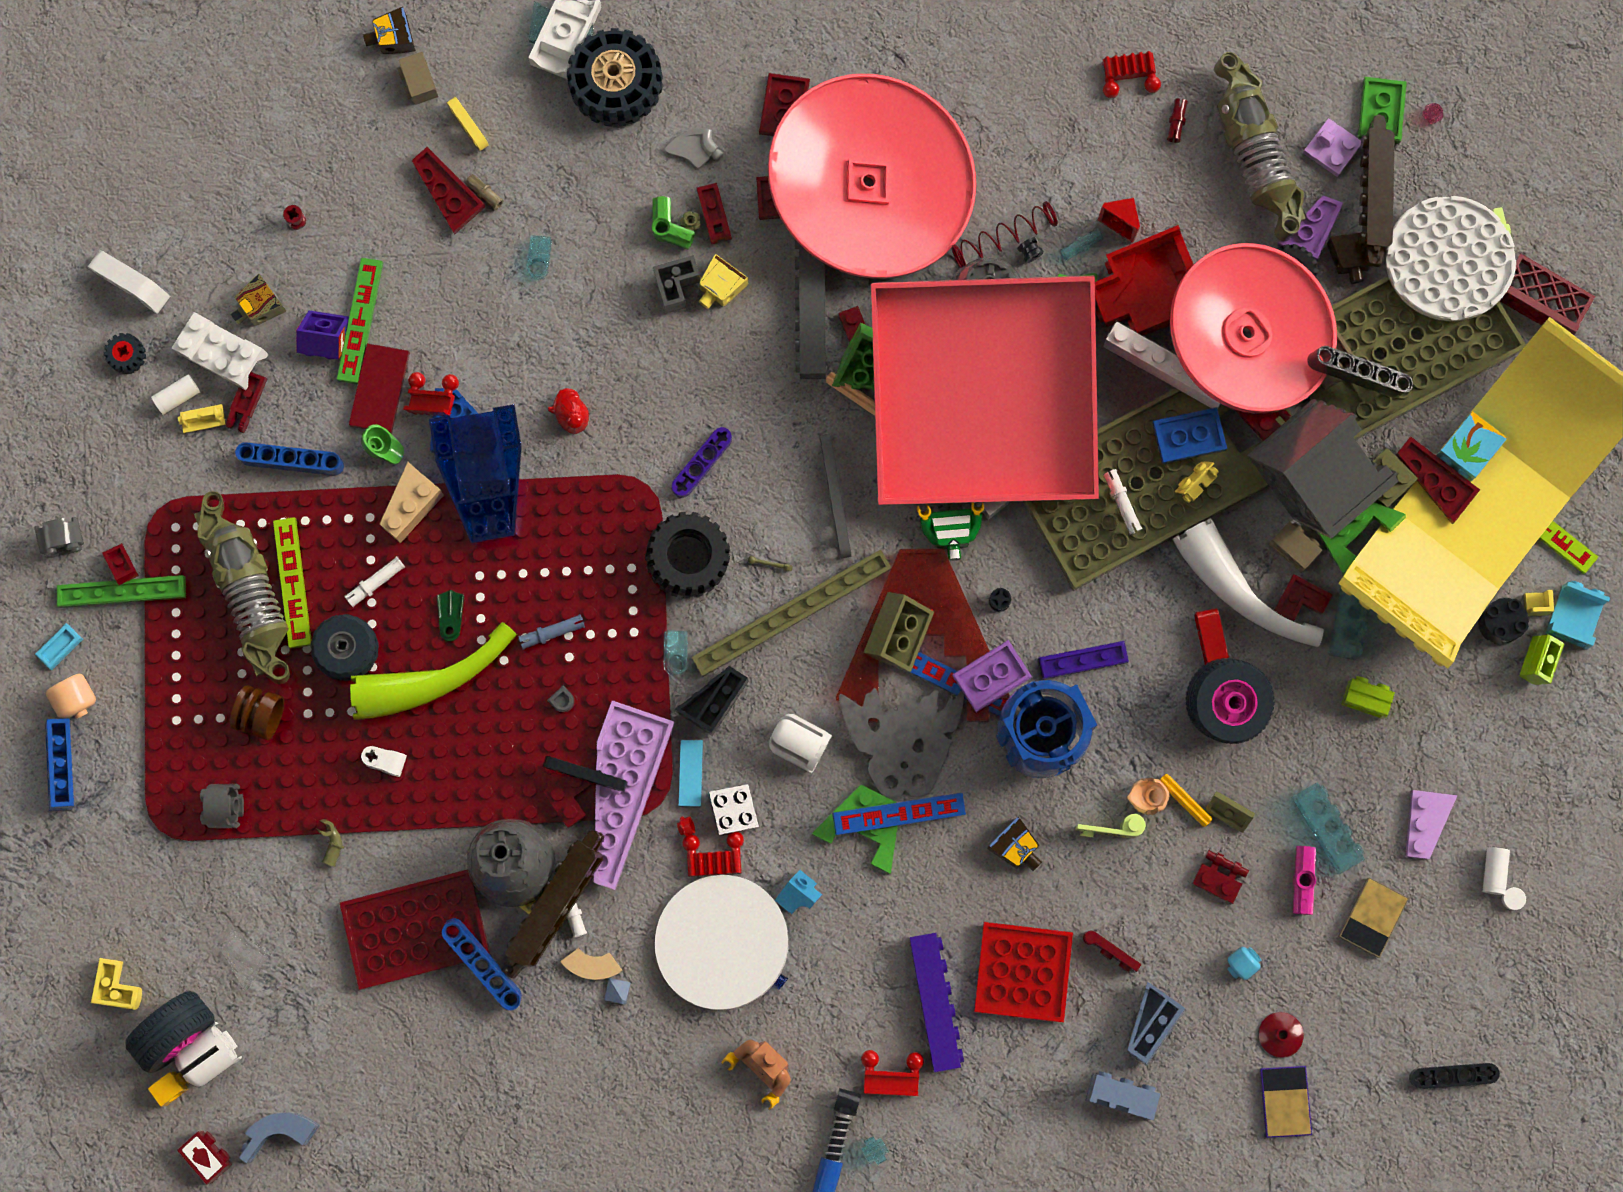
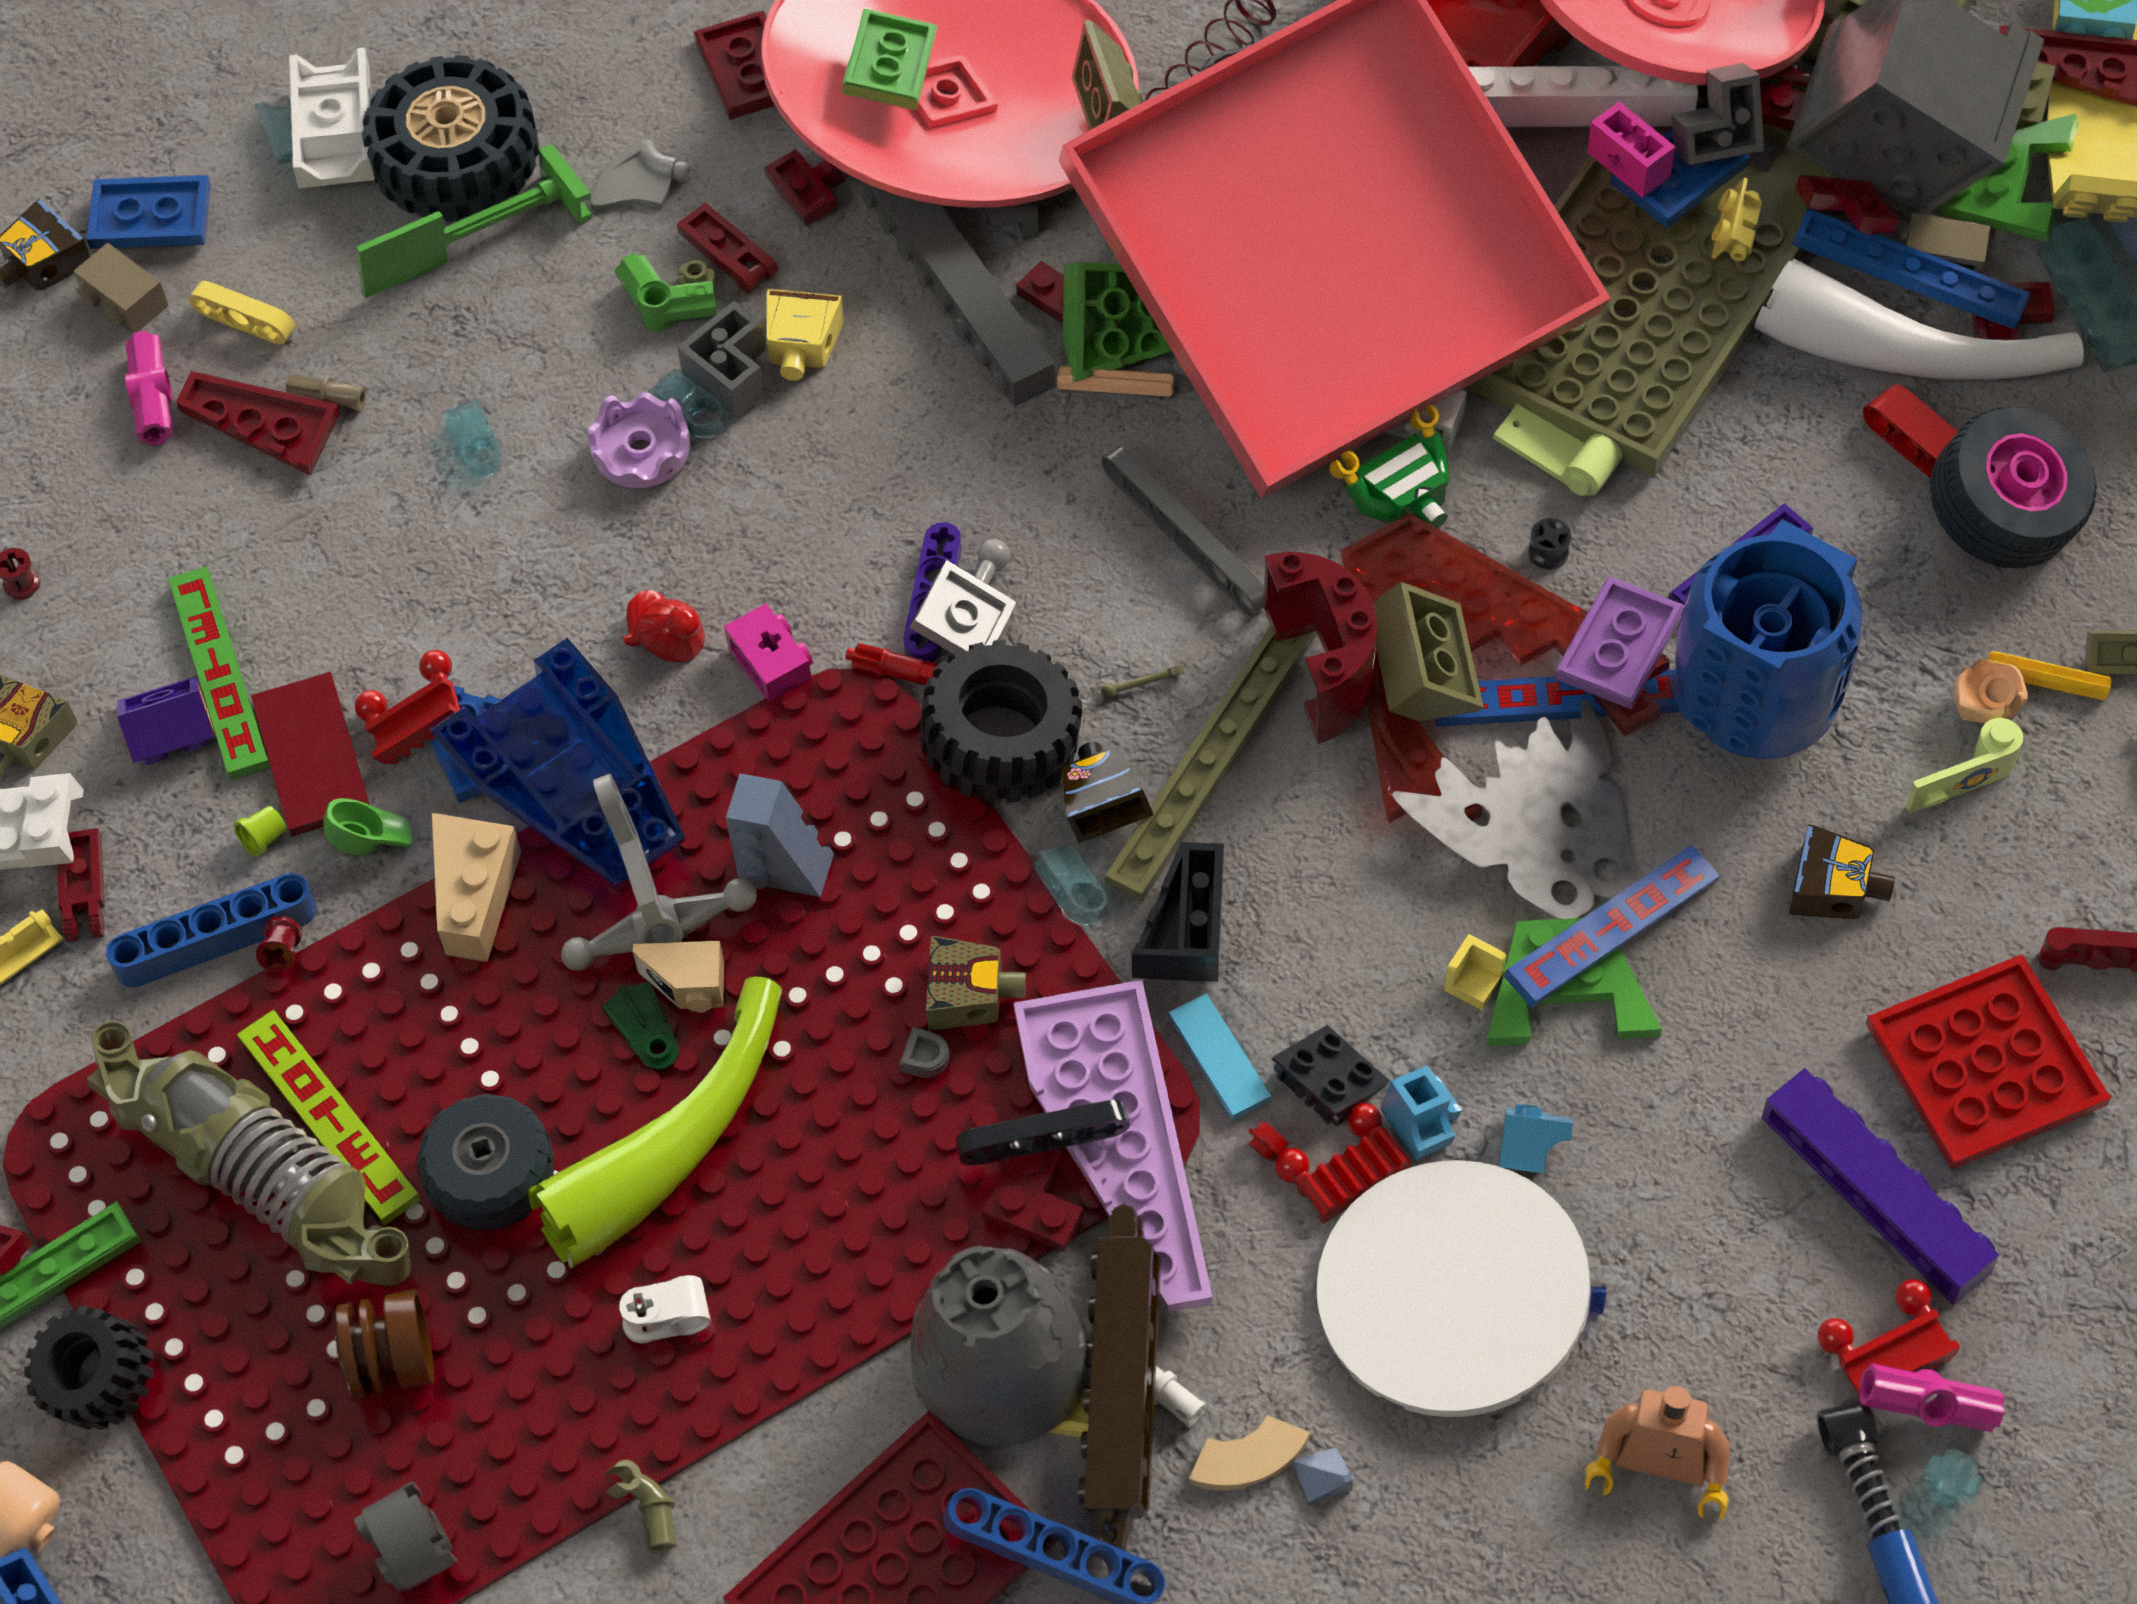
camera: 30 degrees left, 20 degrees down
(119, 646) = (59, 1358): none -> black tyre
(313, 484) = (277, 950): none -> dark red bush
(336, 418) = (259, 830): none -> lime piece
(376, 580) = (471, 1049): white pin -> none
(403, 144) = (149, 388): none -> dark pink piece
(453, 38) = (149, 211): none -> blue plate
(479, 603) = (684, 972): none -> tan slope
(480, 570) = (678, 915): none -> light grey piece
(549, 562) = (771, 839): none -> sand blue wedge
(551, 631) = (827, 968): sand blue pin -> none
(573, 135) = (423, 243): none -> bright green piece
(597, 679) = (967, 984): none -> olive torso
(604, 442) = (768, 652): none -> dark pink brick
(610, 289) = (640, 419): none -> lavender plate
(647, 289) = (691, 400): none -> clear light blue piece
(663, 492) = (890, 663): none -> red piece
(707, 482) = (963, 606): none -> plate
(714, 614) = (1102, 792): none -> dark brown torso
(759, 853) = (1421, 1112): none -> dark azure brick
(799, 741) = (1373, 901): white cylinder -> none
(825, 799) = (1475, 972): none -> light yellow panel
(841, 158) = (889, 59): none -> bright green tile
(846, 631) = (1322, 596): none -> dark red cylinder
(889, 1112) = (1954, 1404): none -> dark pink piece
(939, 237) = (1102, 77): none -> slope
(1037, 553) = (1575, 463): none -> yellowish green door
(1122, 501) = (1632, 295): white pin -> none
(1165, 418) = (1631, 149): none -> dark pink brick
(1218, 431) = (1729, 124): none -> dark grey brick
(1263, 500) = (1855, 197): none -> dark red plate
(1267, 552) = (1911, 269): none -> blue tile

